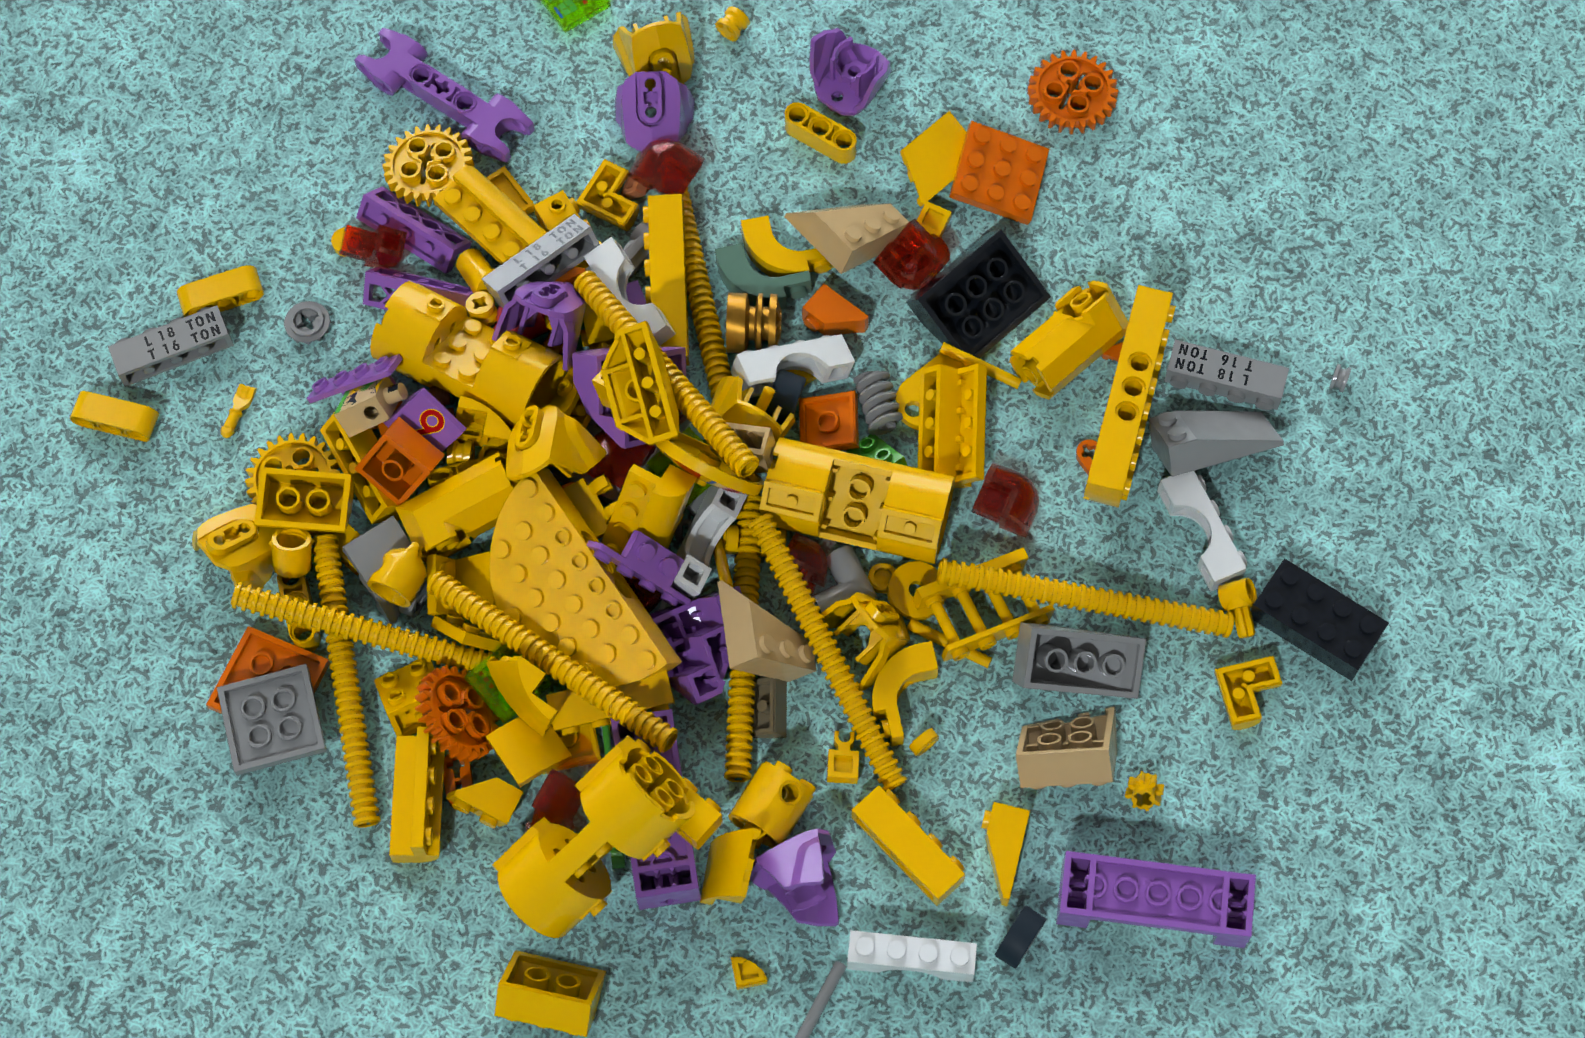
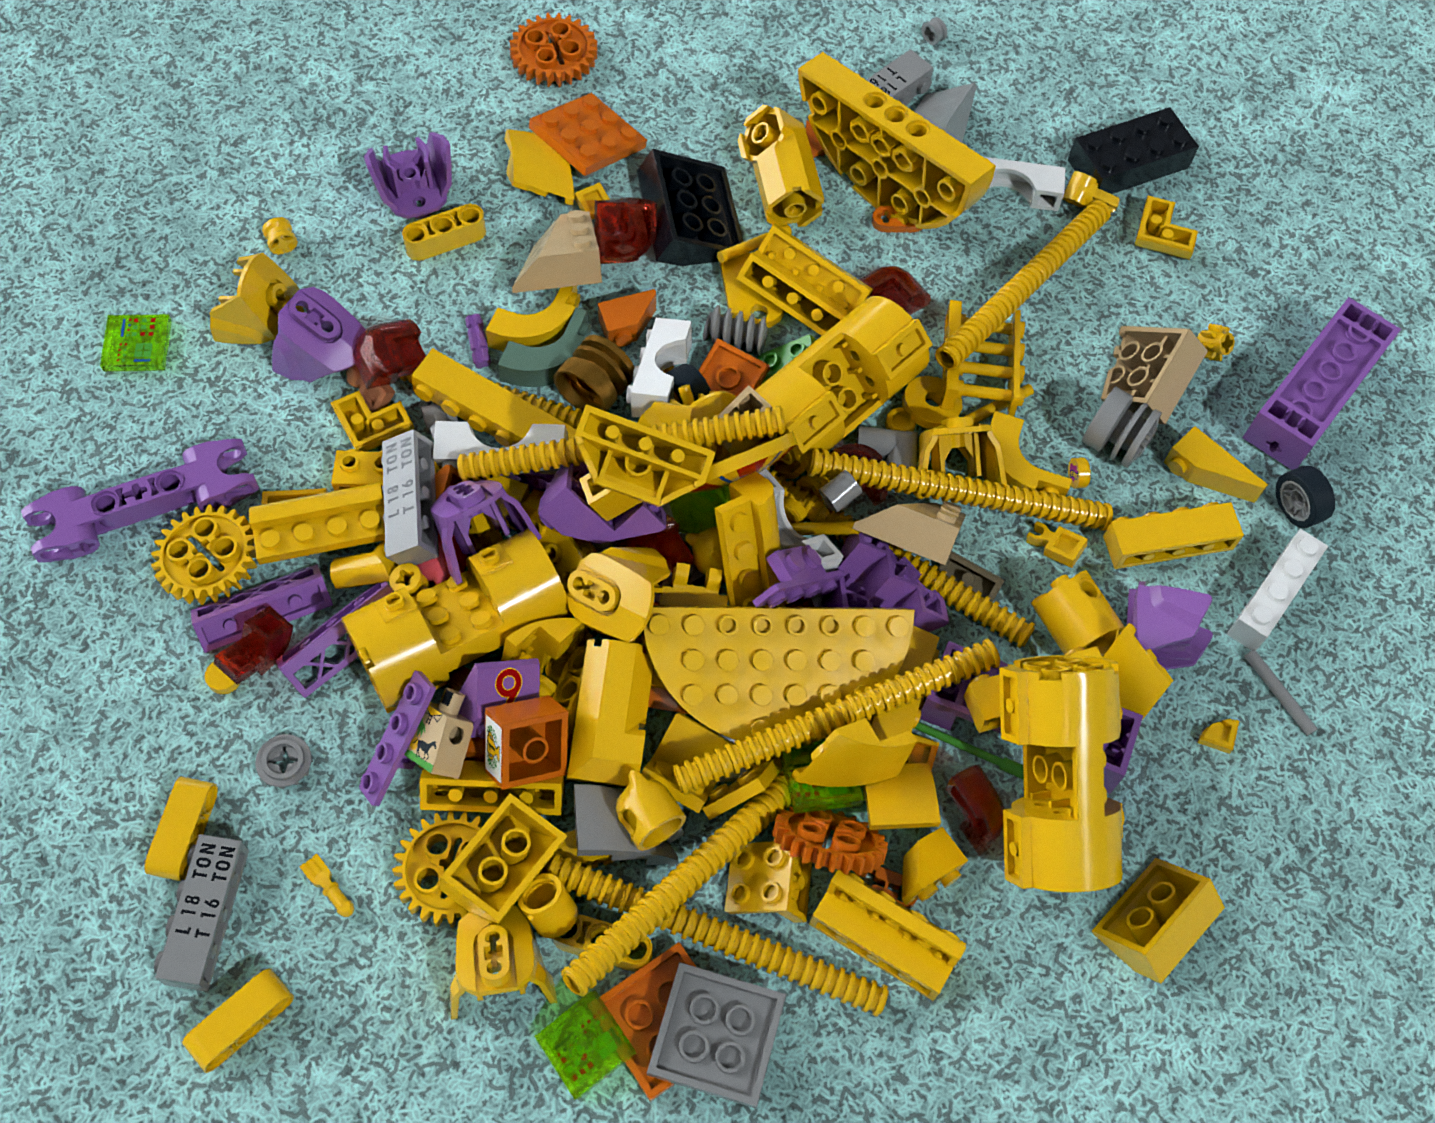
camera: 65 degrees left, 5 degrees down
(220, 640) = (585, 1044): none -> clear neon green tile
(733, 225) = (478, 341): none -> medium lavender axle
(747, 557) = (840, 492): none -> light grey piece
(984, 750) = (1121, 427): none -> light grey wheel
(1078, 661) = (1073, 324): light grey slope -> none

